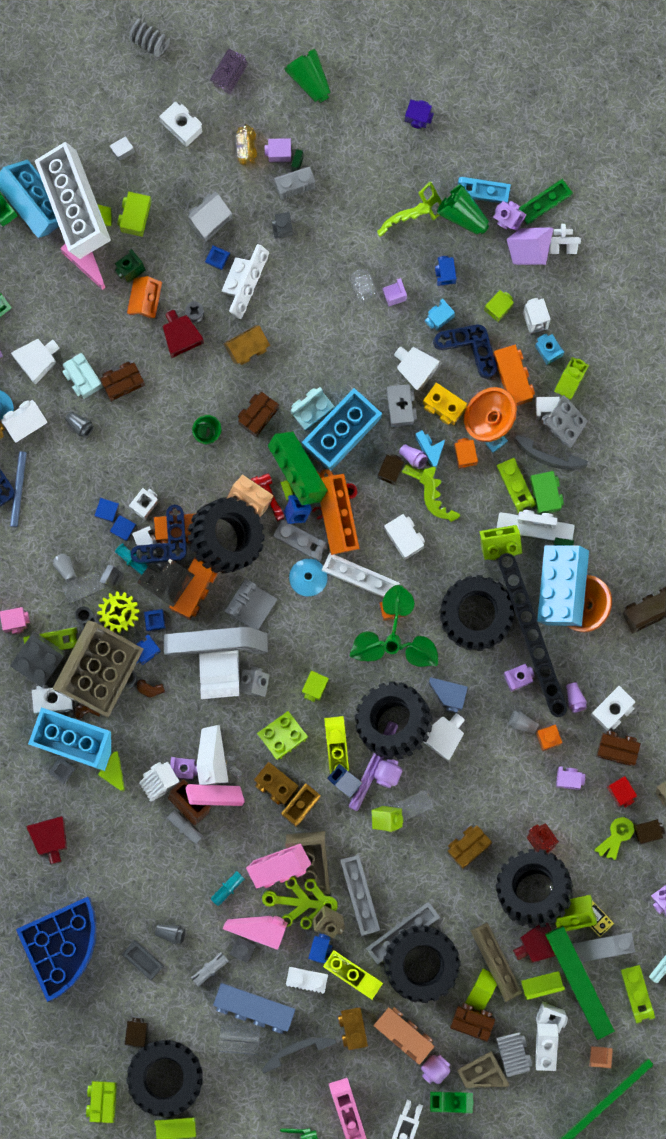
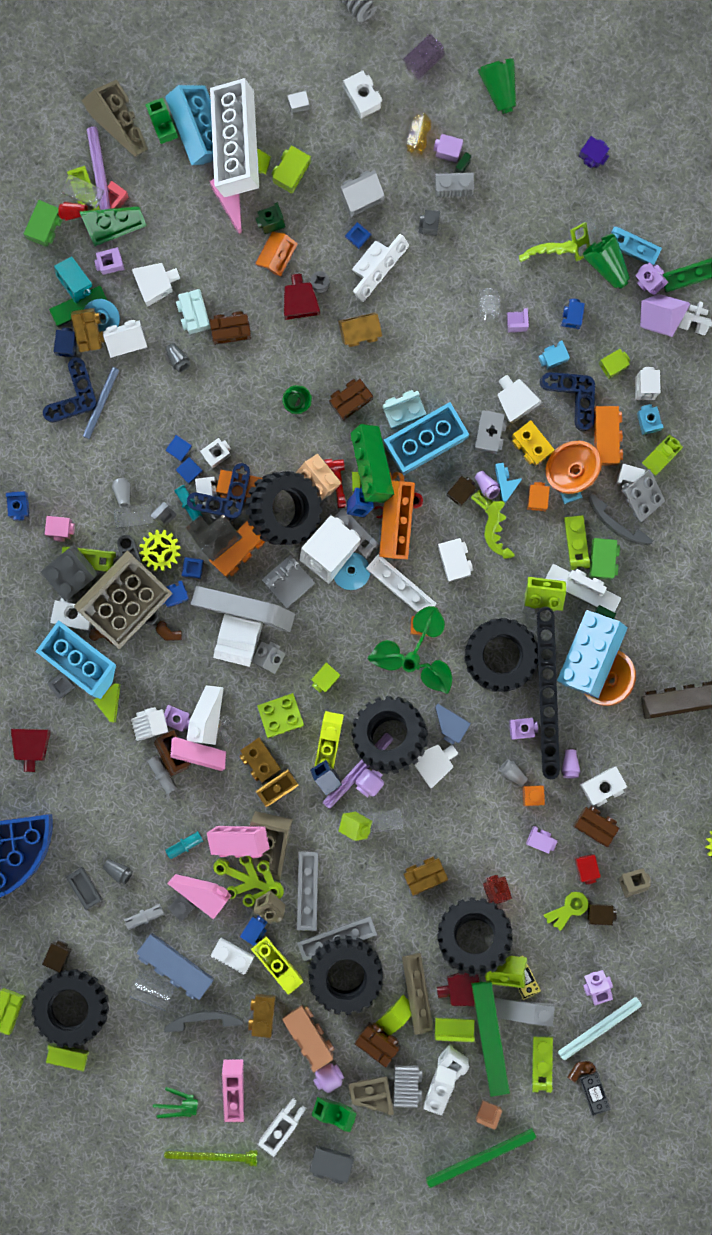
camera: 15 degrees right, 5 degrees up
(281, 561) = (329, 548): none -> white slope

